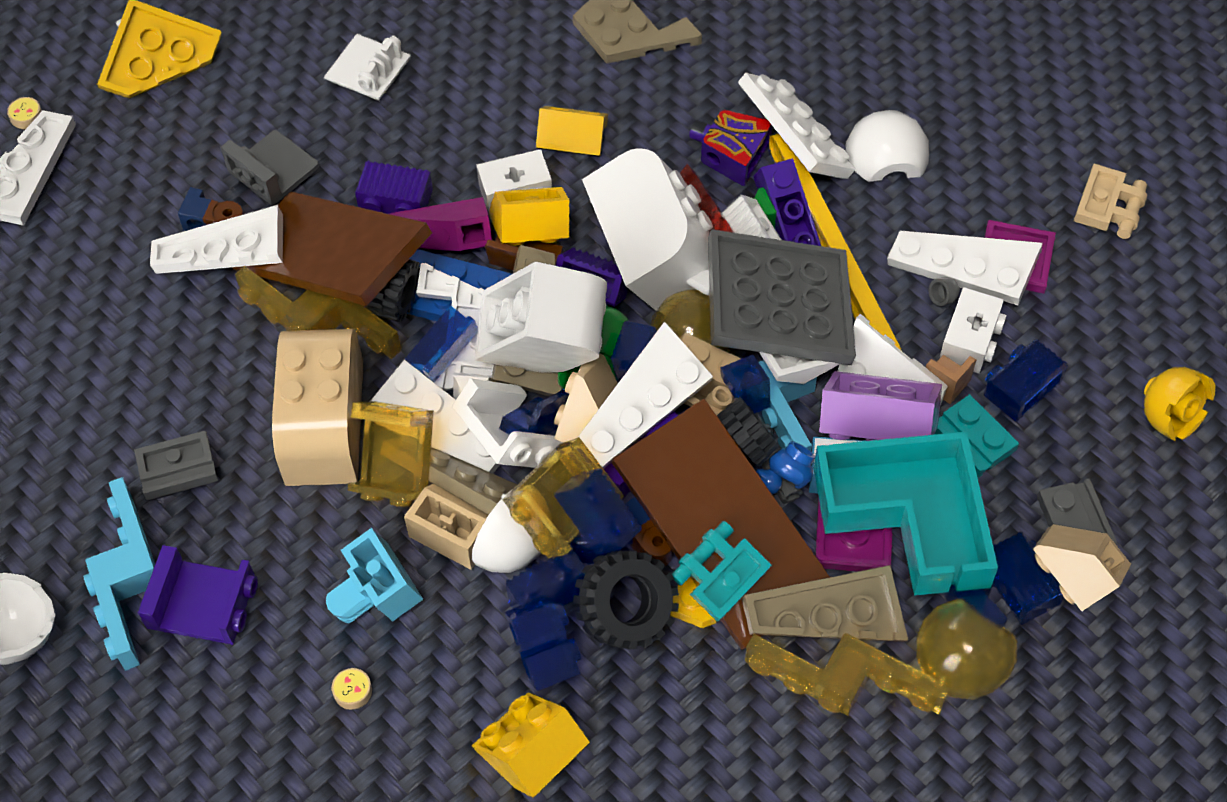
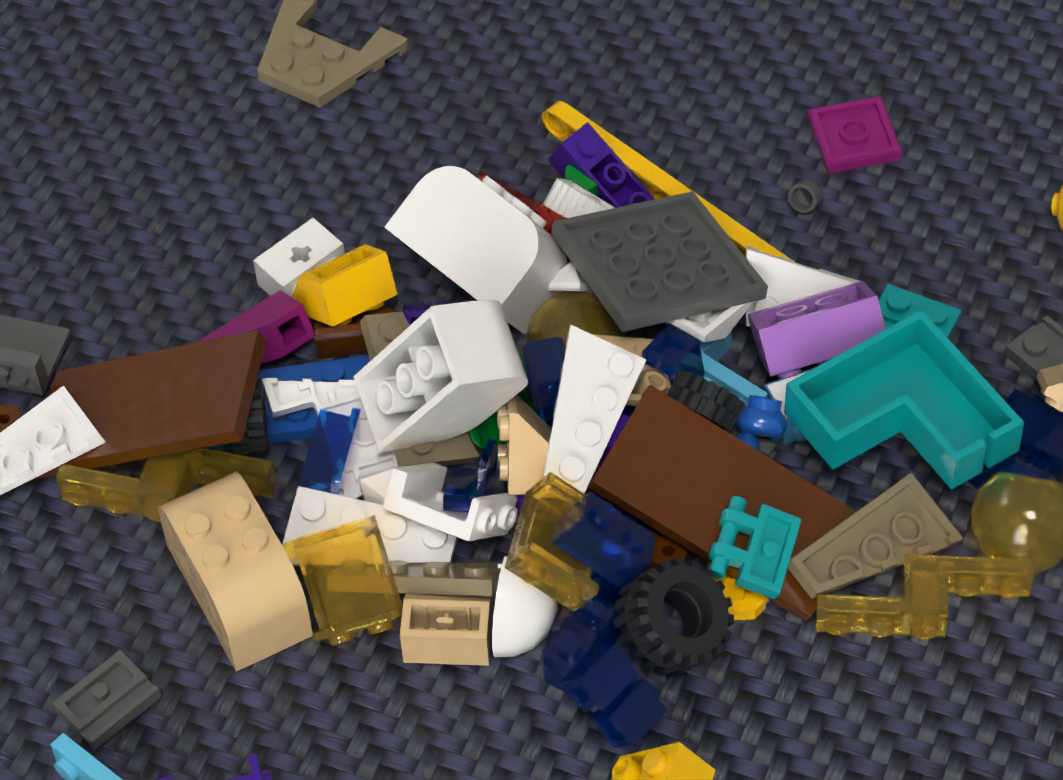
camera: 25 degrees left, 5 degrees down
(368, 65) = (61, 208): white hinge -> none
(374, 581) = (400, 714): medium azure brick -> none
(393, 188) = (171, 320): dark purple brick -> none
(571, 130) = (327, 188): yellow panel -> none
(733, 144) = (507, 135): torso -> none
(796, 126) = (558, 86): white plate -> none
(853, 549) = (857, 479): magenta tile -> none
(888, 144) = (666, 75): white cylinder -> none
(952, 374) = (860, 269): medium nougat panel -> none
(972, 328) = (856, 221): white brick -> none
(975, 263) = (828, 154): white wing -> none
(1024, 379) = (933, 247): clear blue brick -> none
(1100, 197) = (905, 46): tan plate -> none

